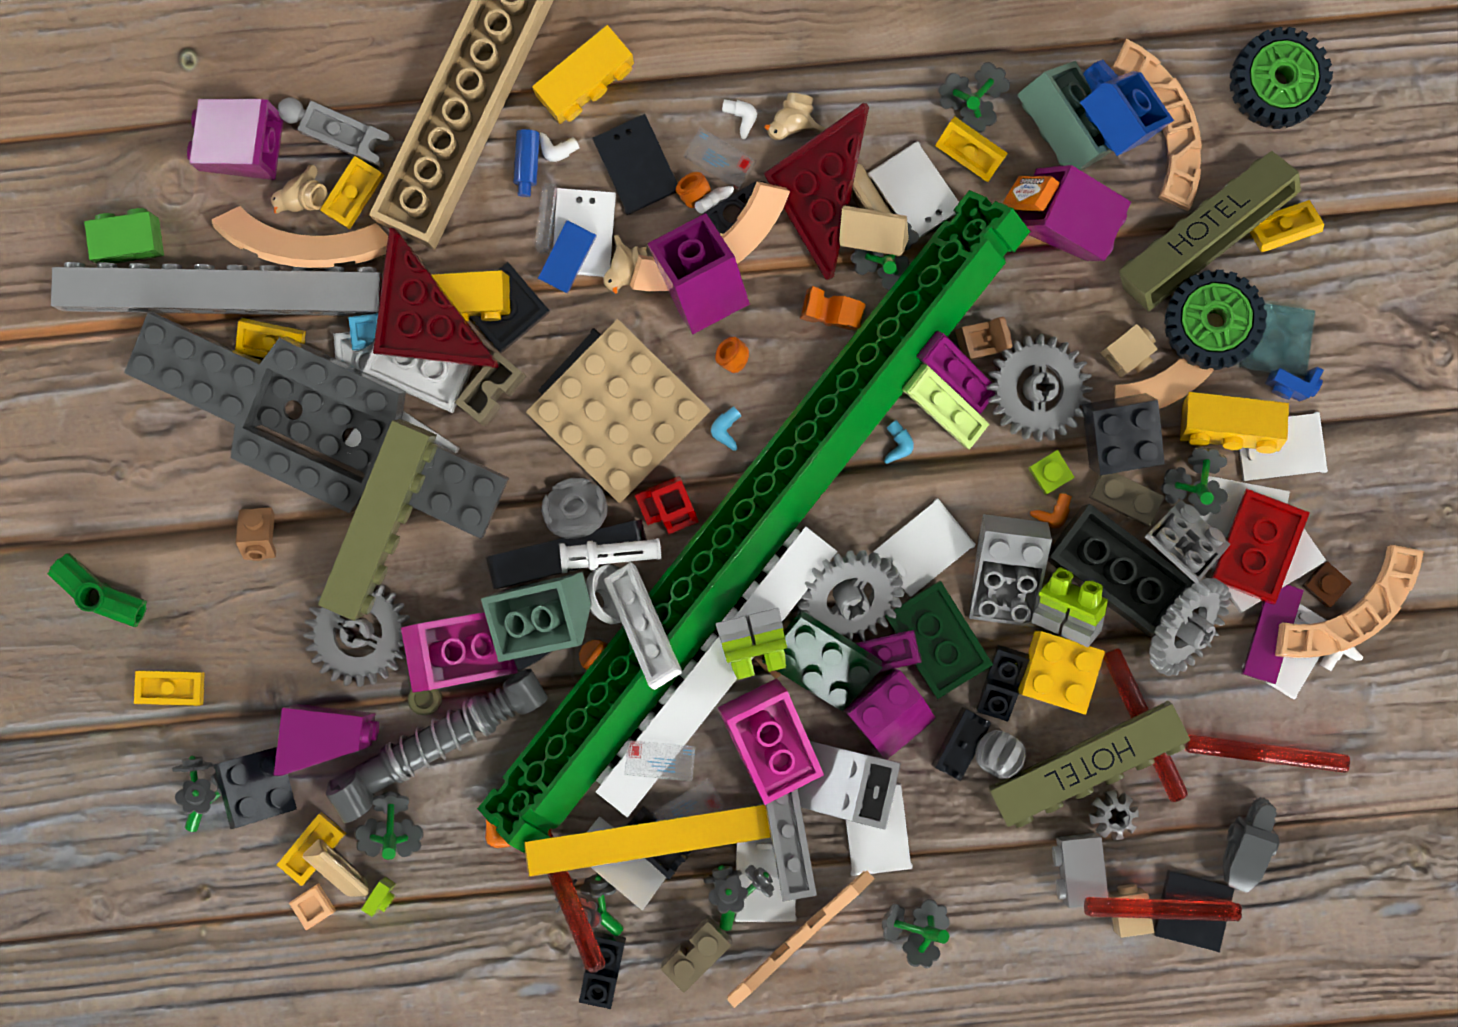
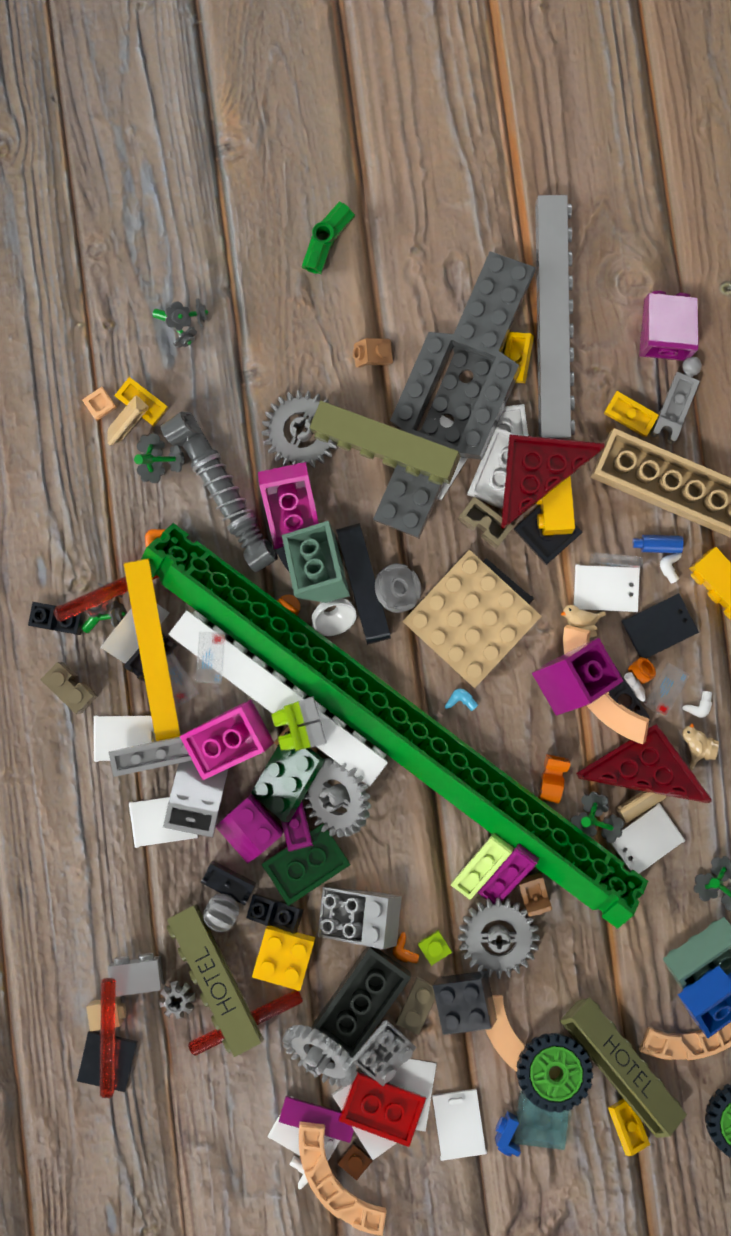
camera: 85 degrees right, 0 degrees up
(124, 237) = (591, 246): bright green brick -> none
(169, 688) = (257, 293): yellow plate -> none
(252, 790) = (185, 359): black plate -> none
(297, 249) = (586, 377): light nougat tile -> none
(300, 193) = (629, 376): tan animal -> none
(320, 734) = (224, 405): magenta slope -> none
(362, 330) = (527, 426): medium azure tile -> none
(380, 897) = (106, 453): lime plate -> none
(425, 701) = (250, 481): olive tile -> none
(567, 256) = (587, 577): blue tile -> none
(589, 554) = (363, 603): white pin -> none
(642, 626) = (310, 642): white tile -> none
(668, 504) = (402, 658): red brick -> none
(729, 893) = (112, 712): dark grey plant -> none
(732, 354) = (517, 703): orange tile -> none
(796, 940) = (51, 732): light nougat tile -> none
(873, 230) = (614, 808): tan slope -> none
(904, 442) = (456, 834): medium azure animal -> none
(925, 546) = (376, 853): white container -> none
(927, 928) = (90, 859): dark grey plant -> none
(971, 149) = (680, 882): yellow plate -> none
(1031, 193) = (647, 928): orange tile -> none
(1071, 608) = (331, 964): lime hips -> none
(1080, 215) = (634, 961): magenta slope -> none
(1131, 351) = (529, 1007): tan brick -> none
(1205, 495) = (420, 1065): dark grey plant -> none
(1234, 422) = (476, 1088): yellow brick -> none
(1250, 846) = (156, 1104): dark grey hinge -> none
(1268, 753) = (225, 1117): clear red axle -> none

